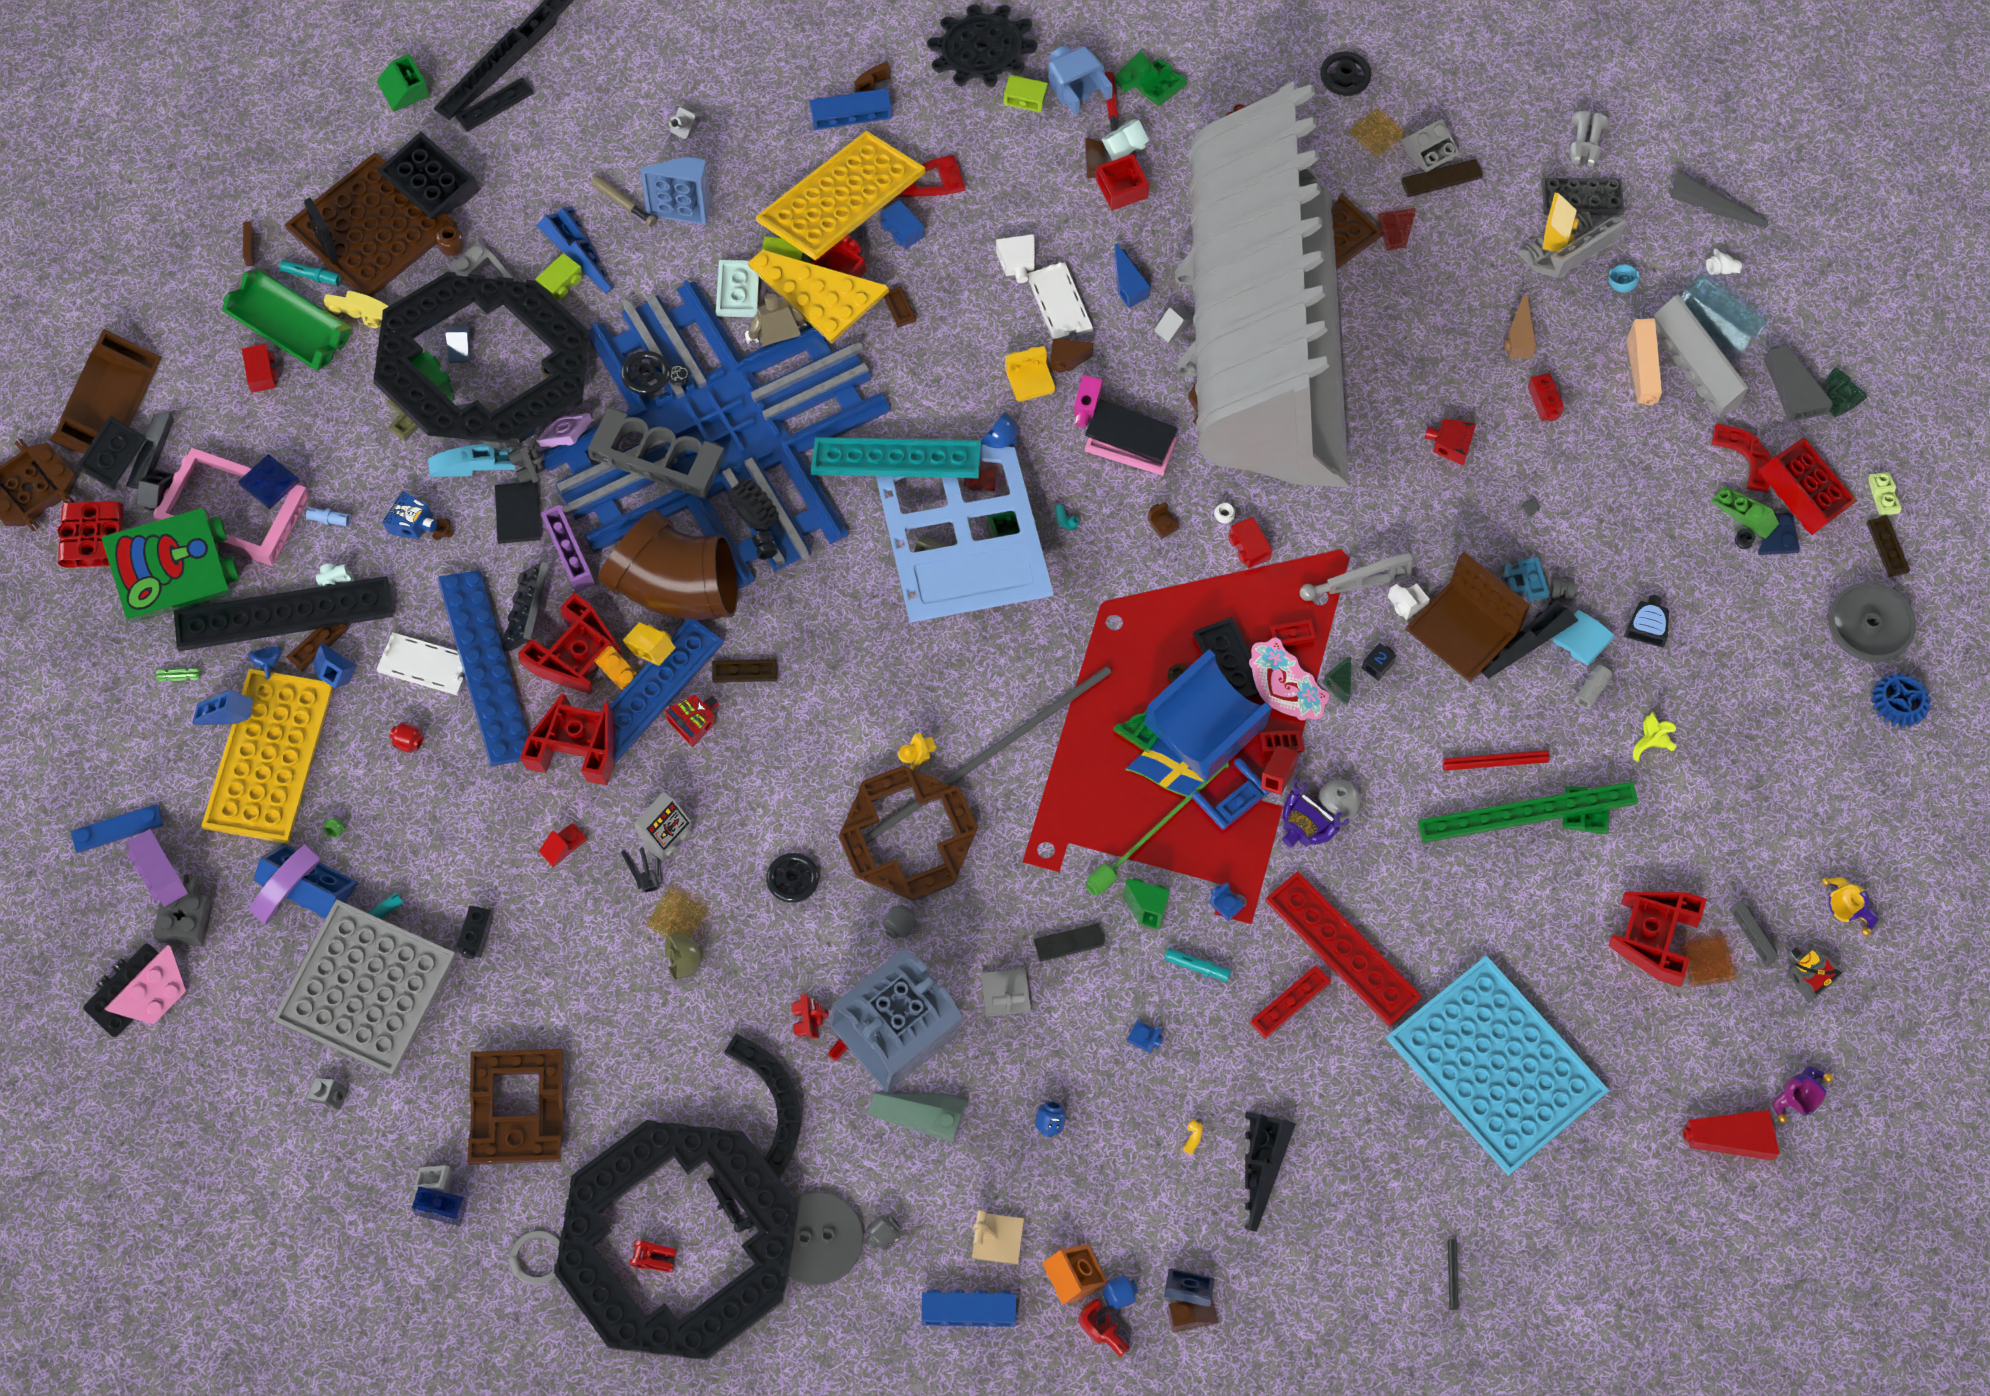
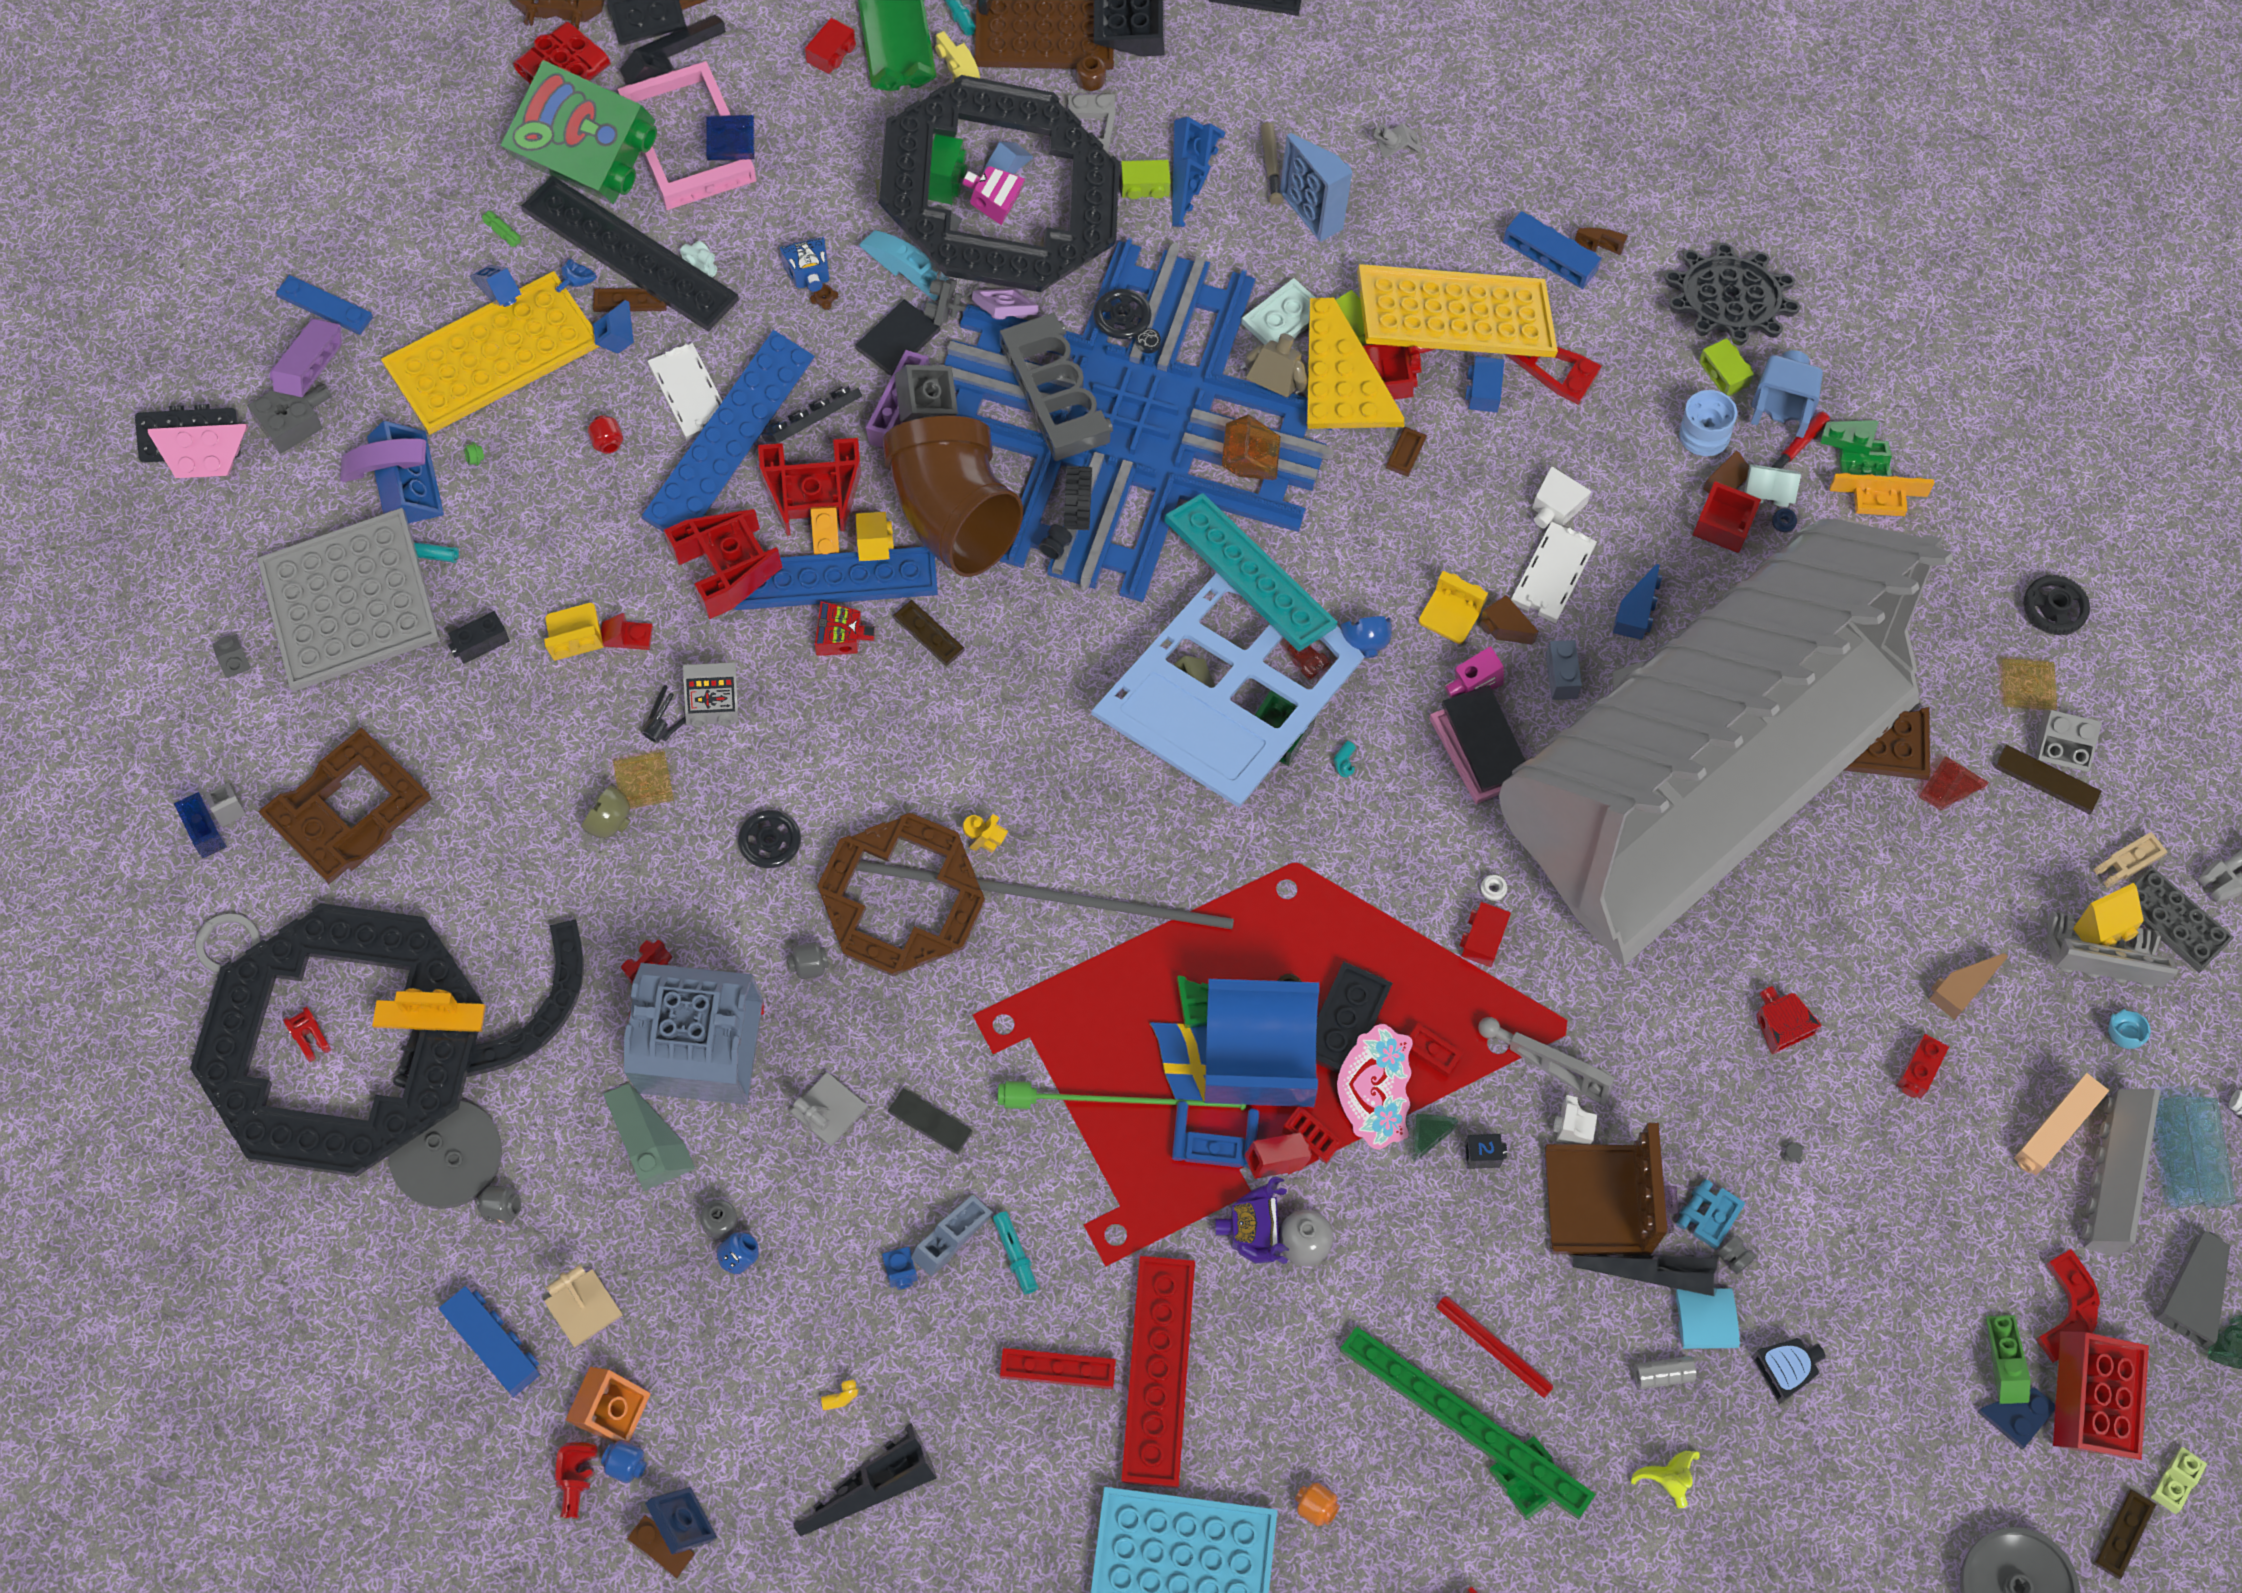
camera: 45 degrees right, 0 degrees up
(328, 516) = (749, 208): light blue pin -> none
(492, 365) = (994, 192): none -> dark pink torso
(530, 872) = (573, 631): none -> yellow bracket
(590, 528) = (925, 392): none -> dark grey brick
(719, 1167) = (428, 1012): none -> light orange bracket
(815, 385) = (1251, 449): none -> clear orange slope
(1013, 1116) = (715, 1225): none -> dark grey head
(1053, 135) = (1708, 423): none -> light blue wheel
(1129, 353) = (1563, 670): none -> sand blue brick
(1146, 902) = (1028, 1156): green slope -> none
(1152, 150) = (1789, 516): none -> dark blue plate
(1154, 990) = (950, 1235): none -> sand blue slope
(1162, 520) = (1429, 841): reddish brown bracket -> none
(1188, 93) = (1881, 494): none -> light orange bracket
(1225, 902) = (1102, 1223): blue bracket -> none
(1501, 932) = (1317, 1504): none -> orange head
(1529, 182) = (2132, 858): none -> tan hinge
(1744, 532) = (1979, 1392): black bush -> none

